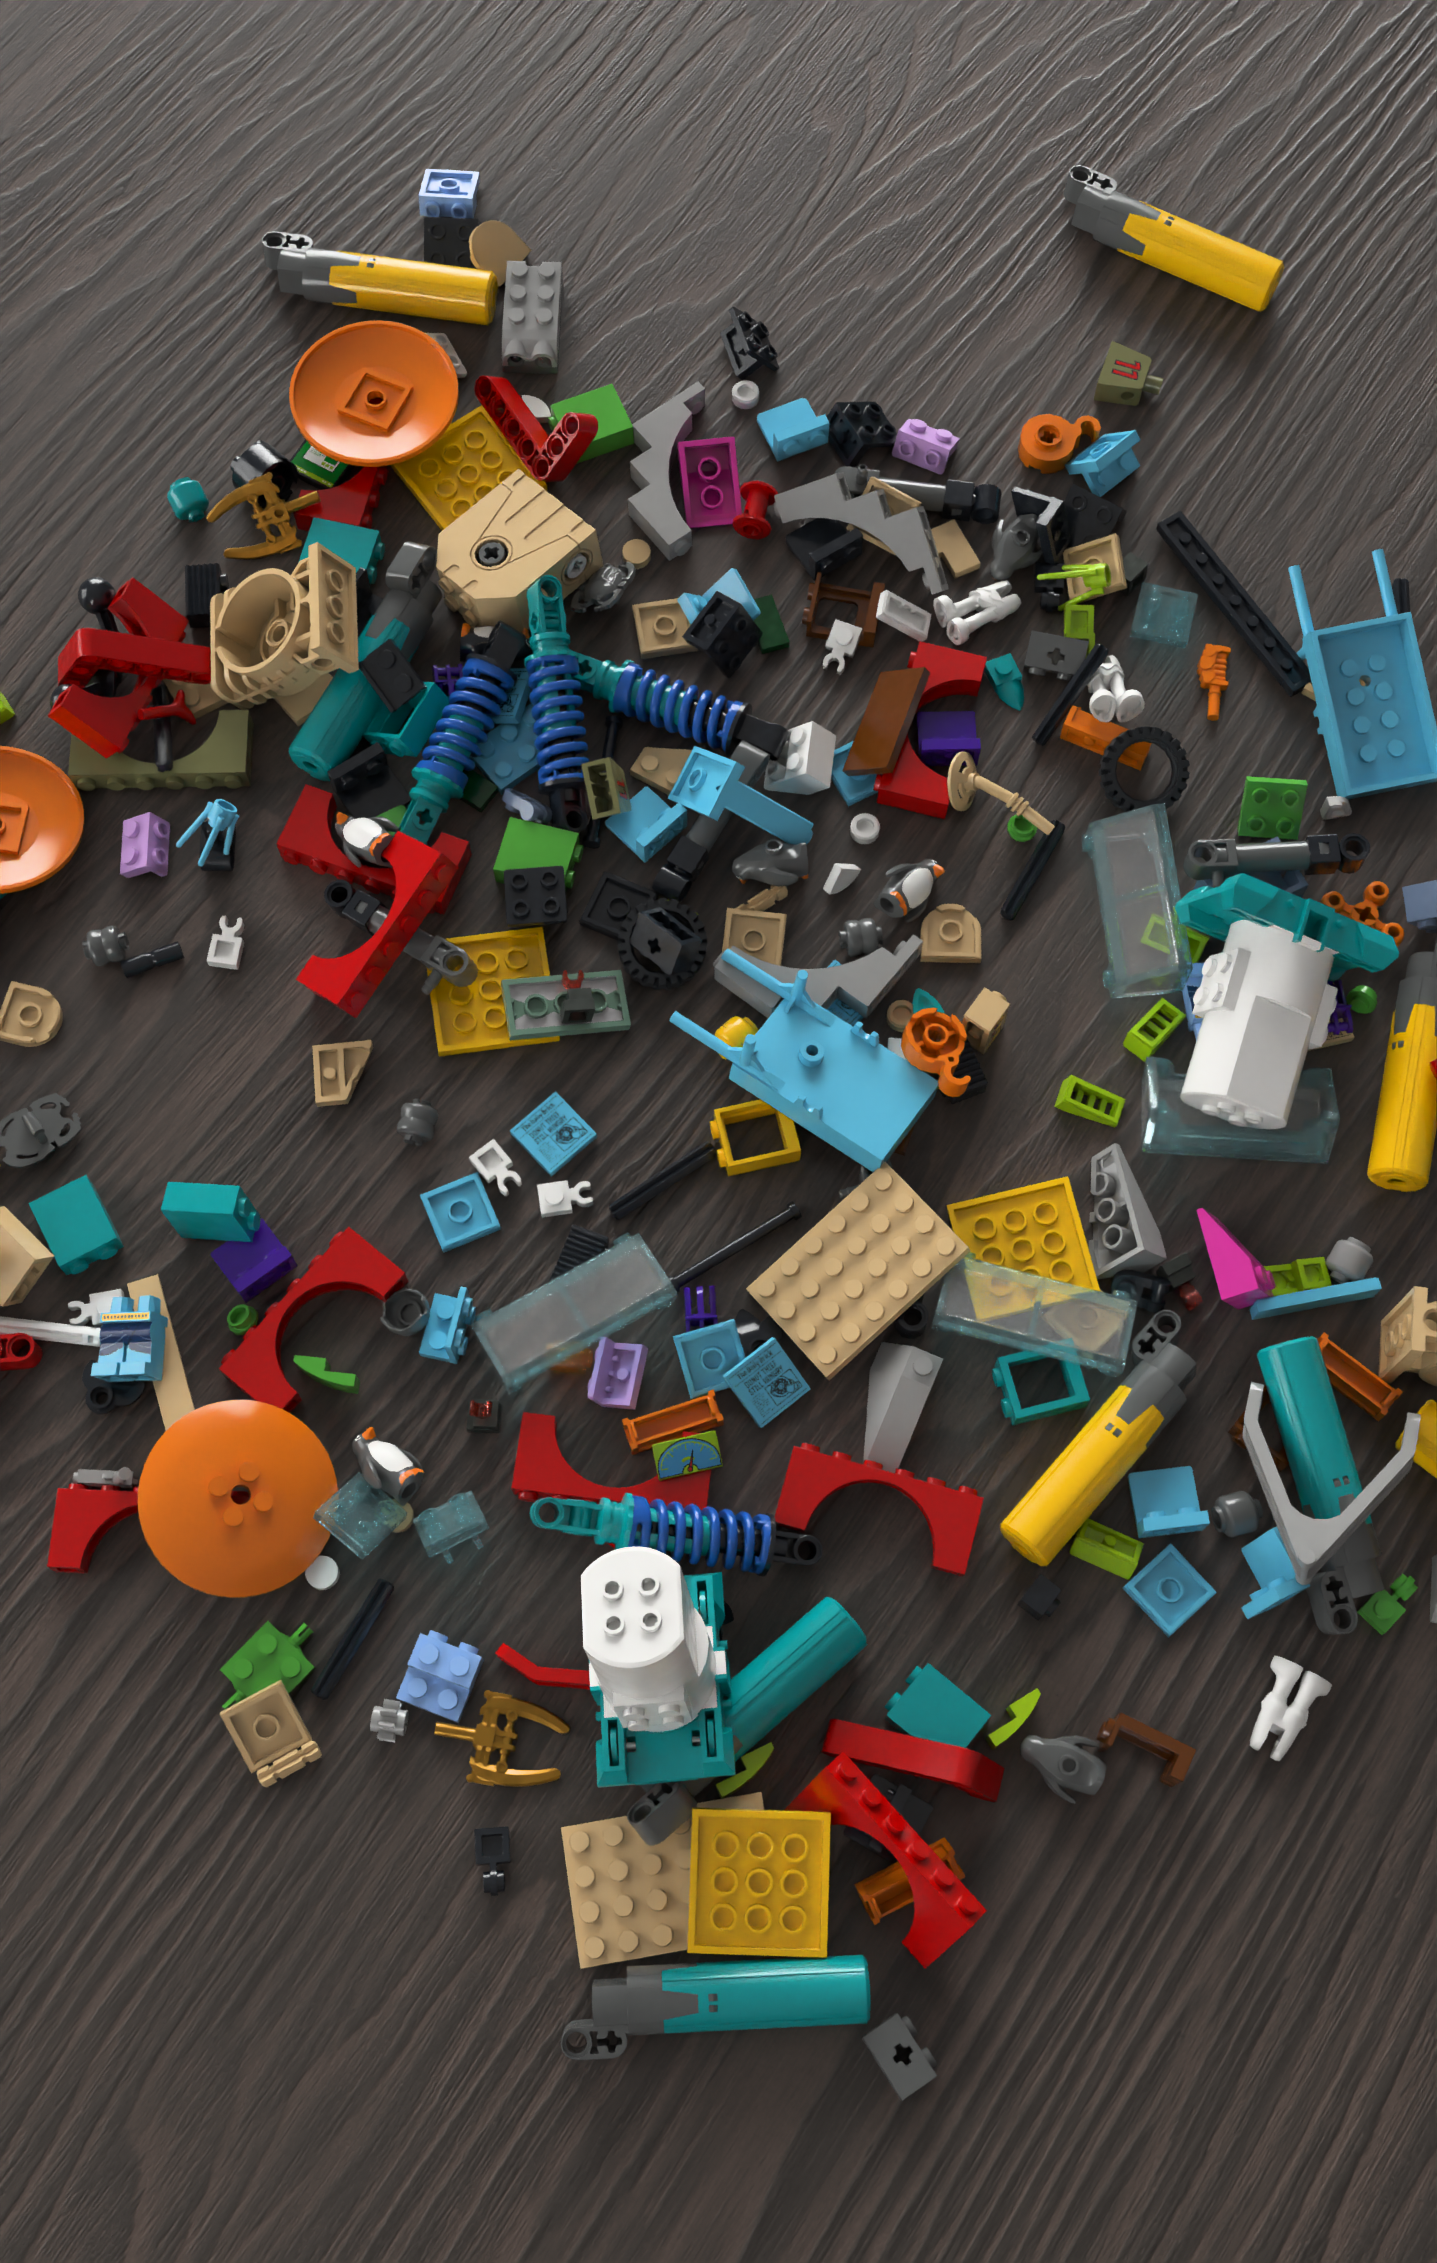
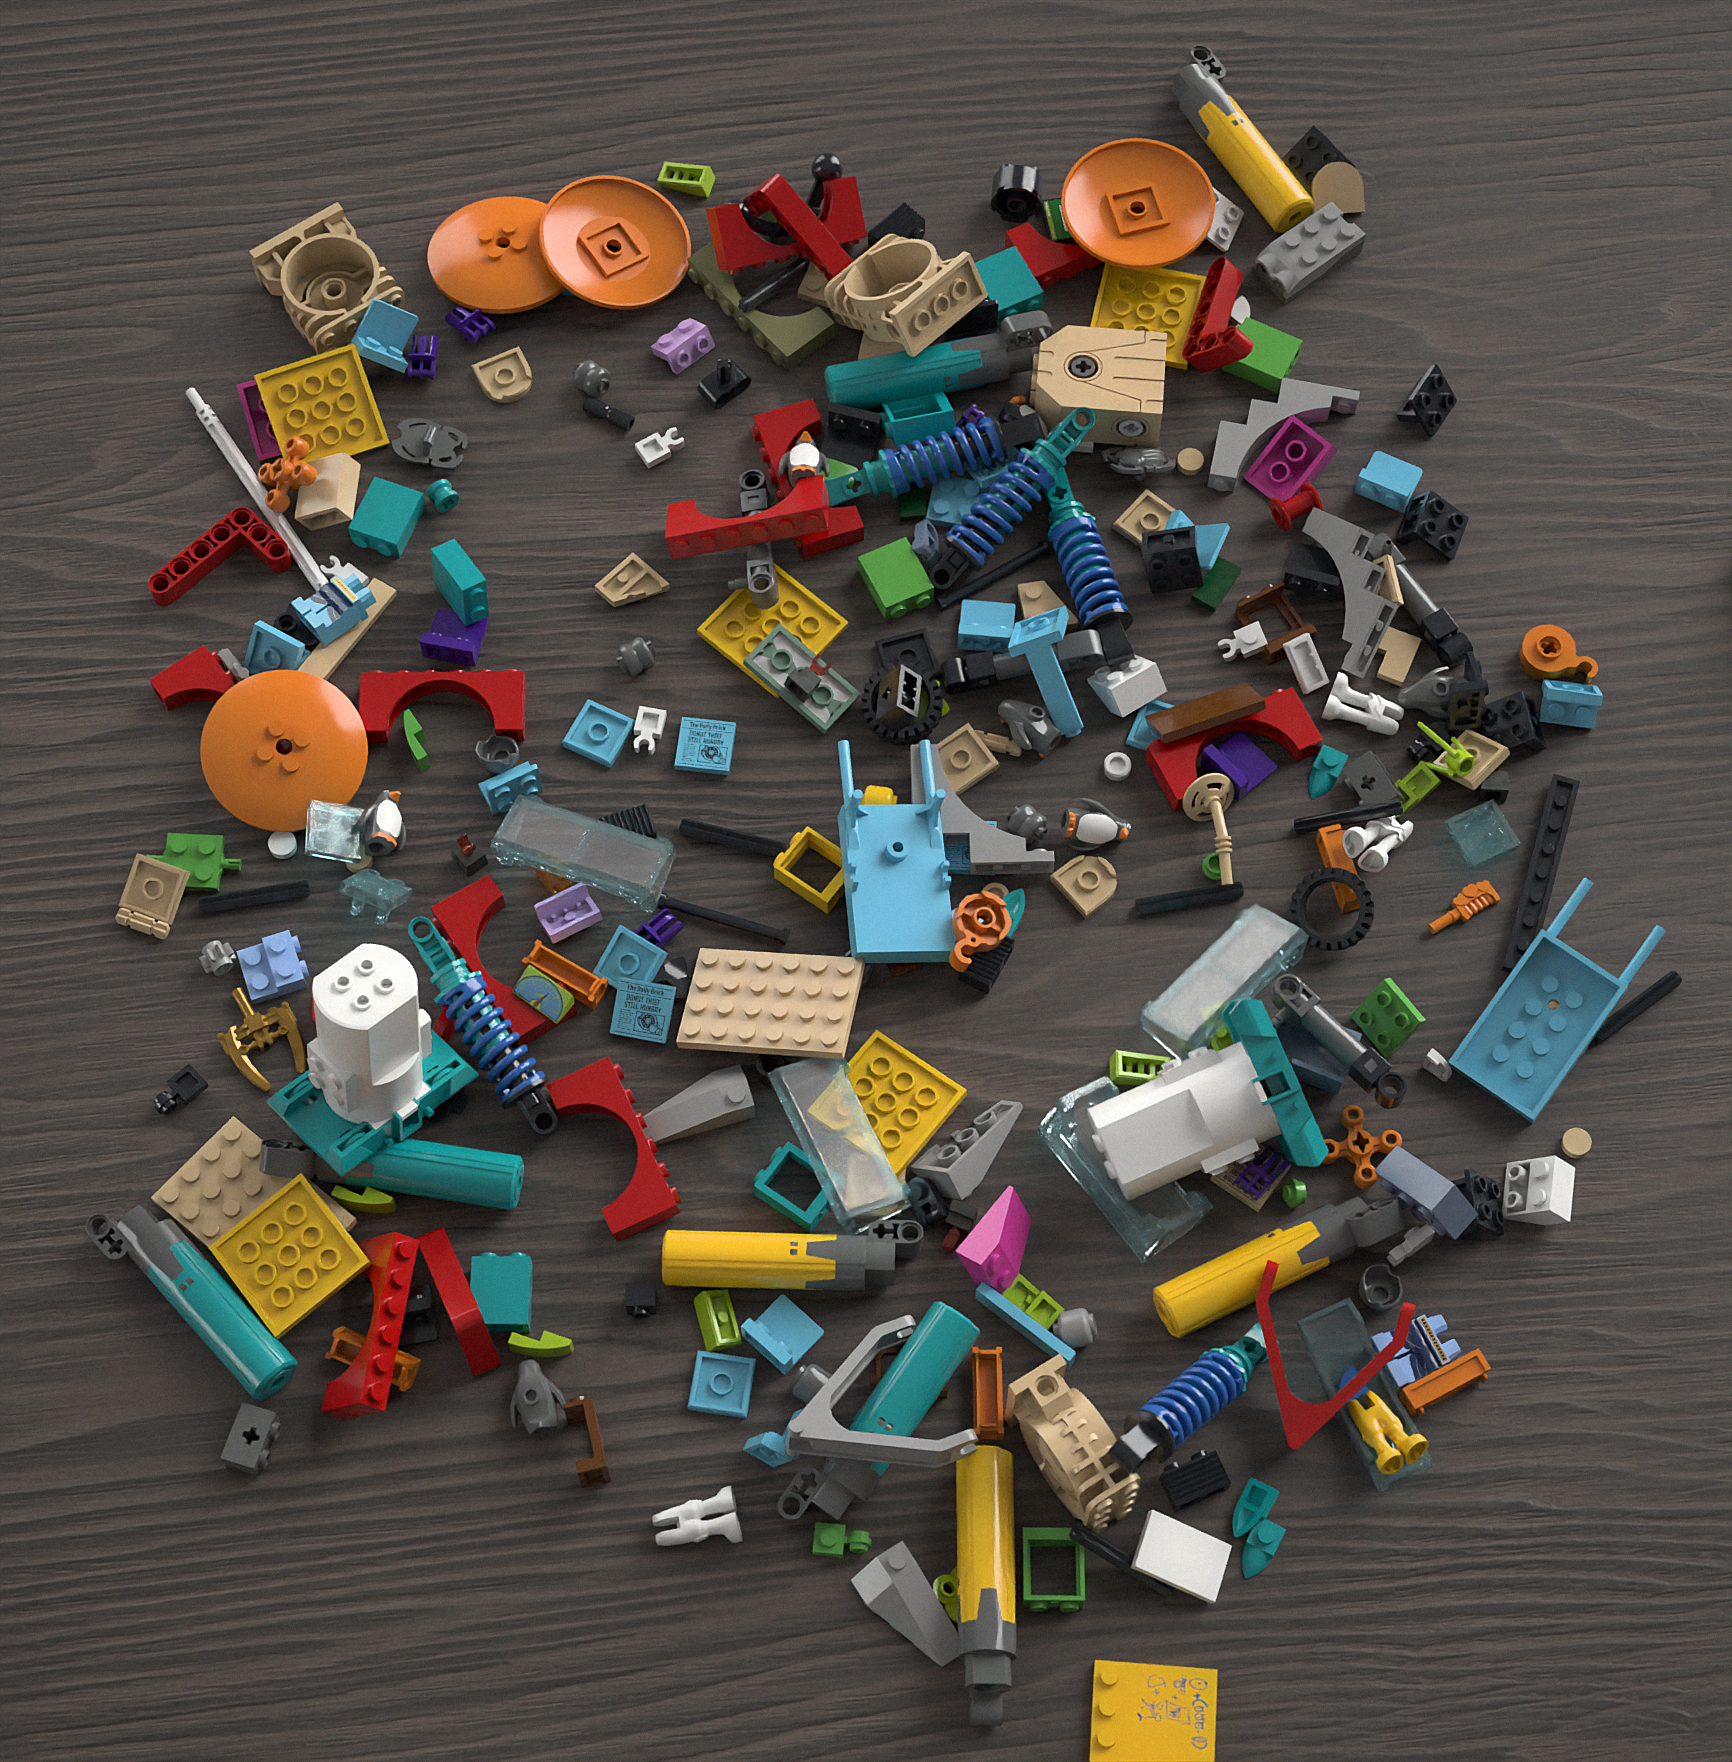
camera: 50 degrees right, 5 degrees down
(101, 1160) = (443, 495): none -> teal wheel
(126, 1432) = (273, 650): none -> medium azure bracket
(176, 709) = (795, 281): red piece -> none
(188, 499) = (957, 165): teal head -> none
(220, 815) = (732, 363): medium azure plant -> none
(242, 1318) = (409, 661): bright green plate -> none
(276, 513) = (995, 221): pearl gold bar -> none
(391, 675) = (932, 381): black plate -> none
(448, 193) = (1354, 126): light blue plate -> none
(535, 896) = (862, 598): black bracket -> none
(557, 1197) = (664, 784): white plate -> none
(607, 790) = (979, 577): olive torso -> none
(745, 394) = (1388, 431): white tile -> none
(841, 877) = (1063, 778): white tile -> none
(924, 445) = (1463, 575): lavender bracket -> none
(985, 1019) = (1034, 947): tan brick -> none
(1074, 1106) = (1044, 1044): lime slope -> none
(1125, 377) = (1657, 662): olive torso -> none

